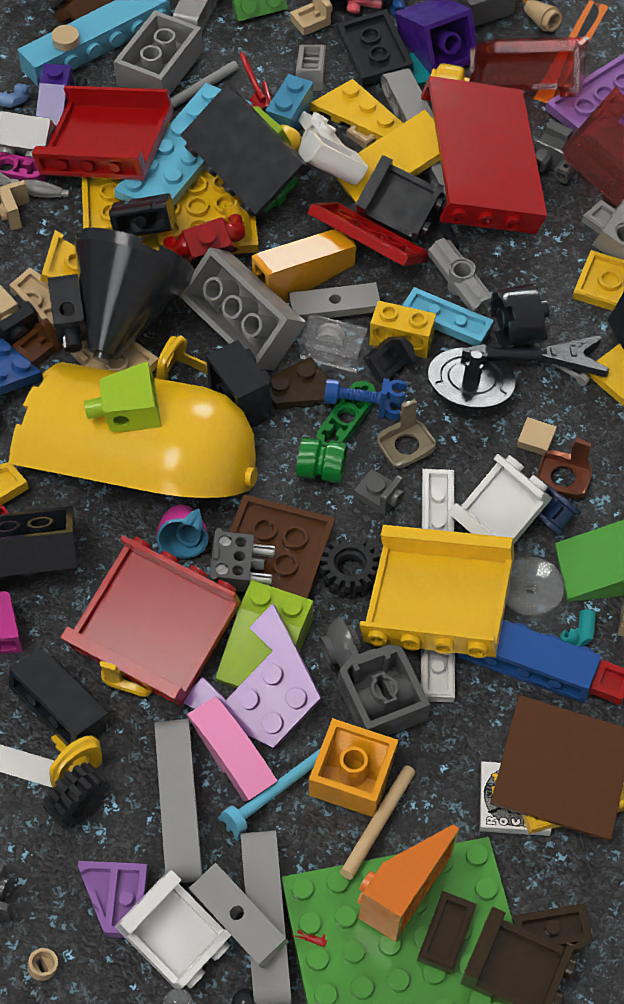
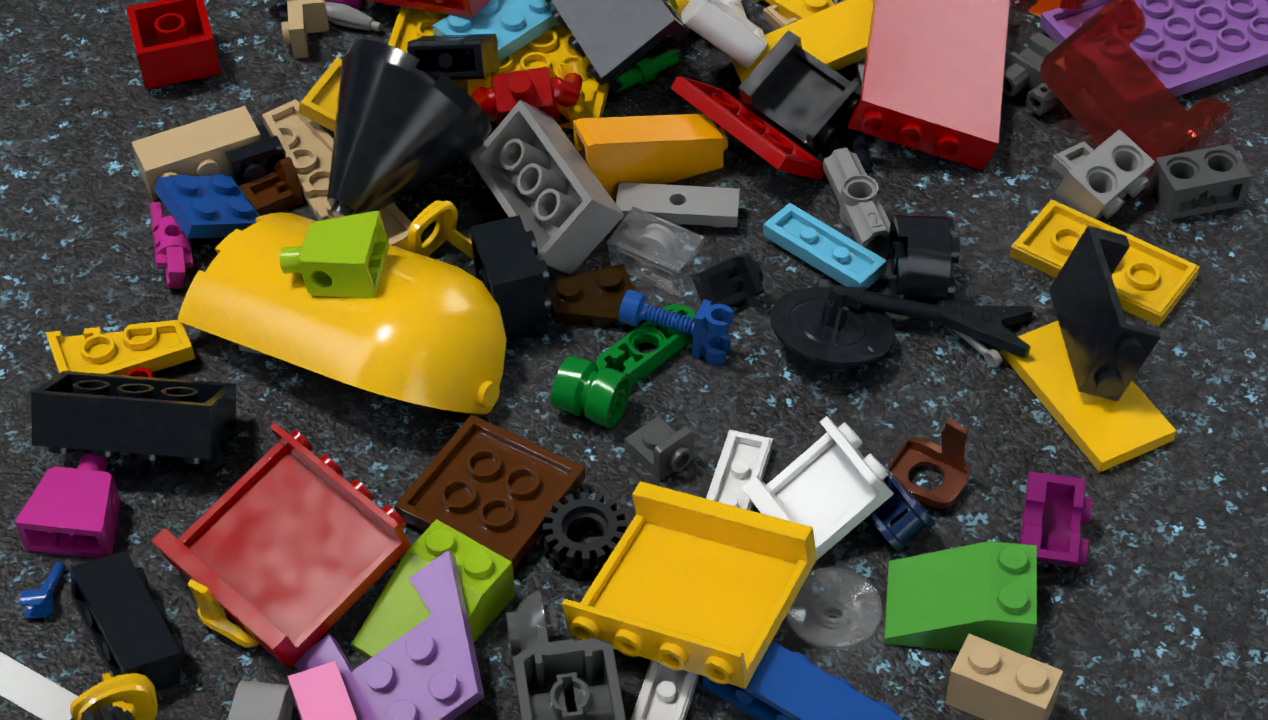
camera: 15 degrees right, 10 degrees down
(67, 311) = (310, 161): black torso -> none
(182, 532) = (368, 446): dark azure hat -> none
(234, 559) = (426, 487): dark grey piece -> none
(397, 321) = (771, 245): yellow brick -> none
(407, 427) = (724, 373): dark tan piece -> none
(536, 436) = (904, 417): tan tile -> none
(584, 633) = (895, 688): teal arm -> none

